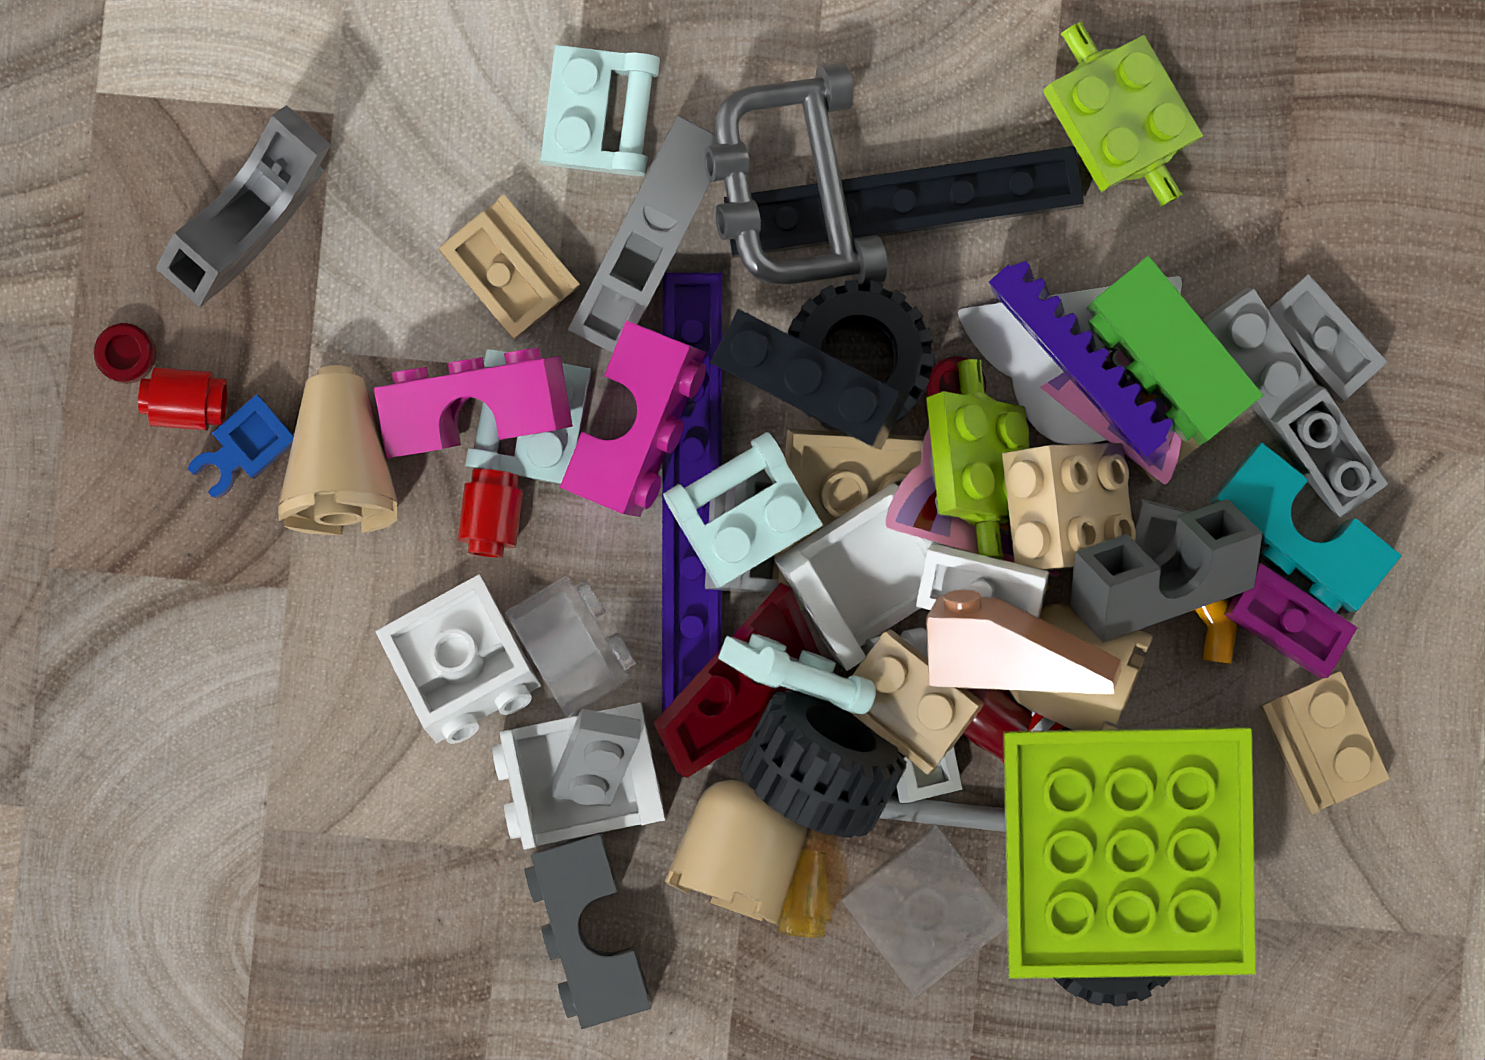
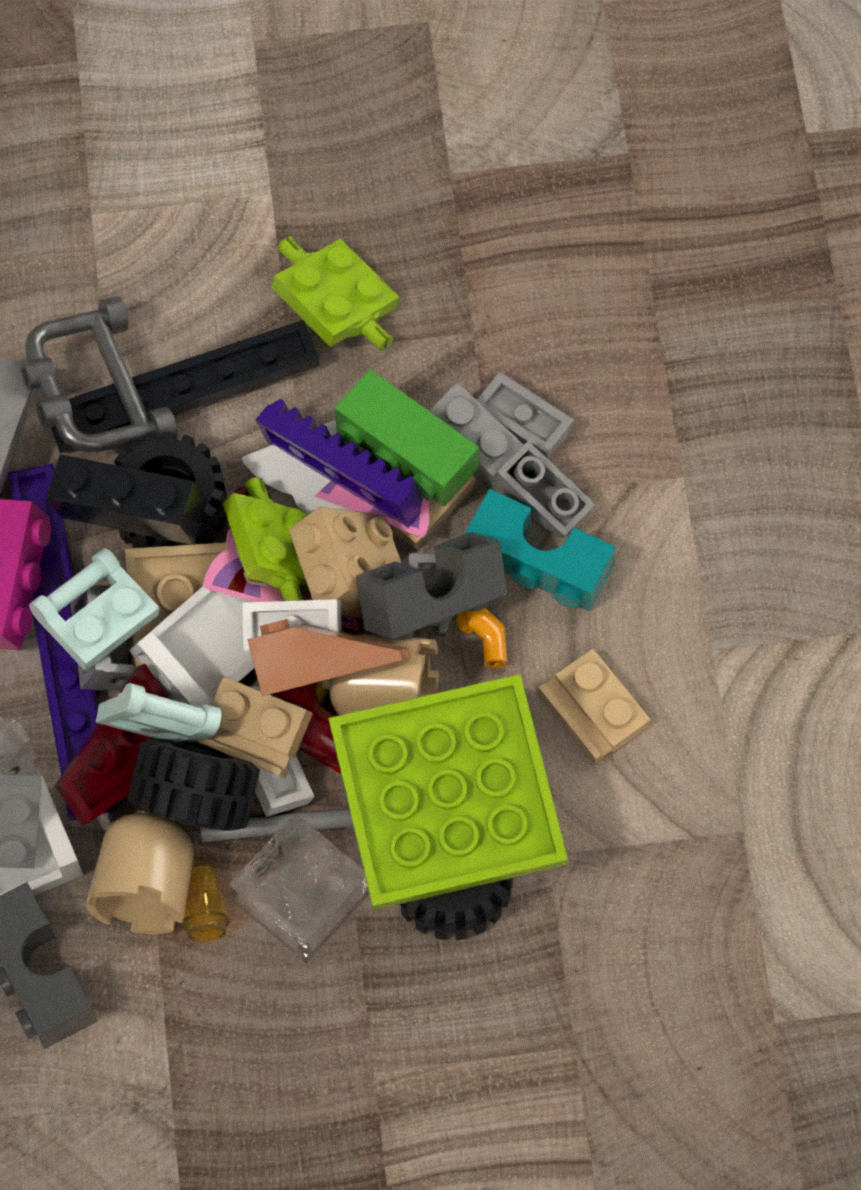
camera: 10 degrees left, 20 degrees down
(1292, 622) = (544, 618): magenta plate -> none

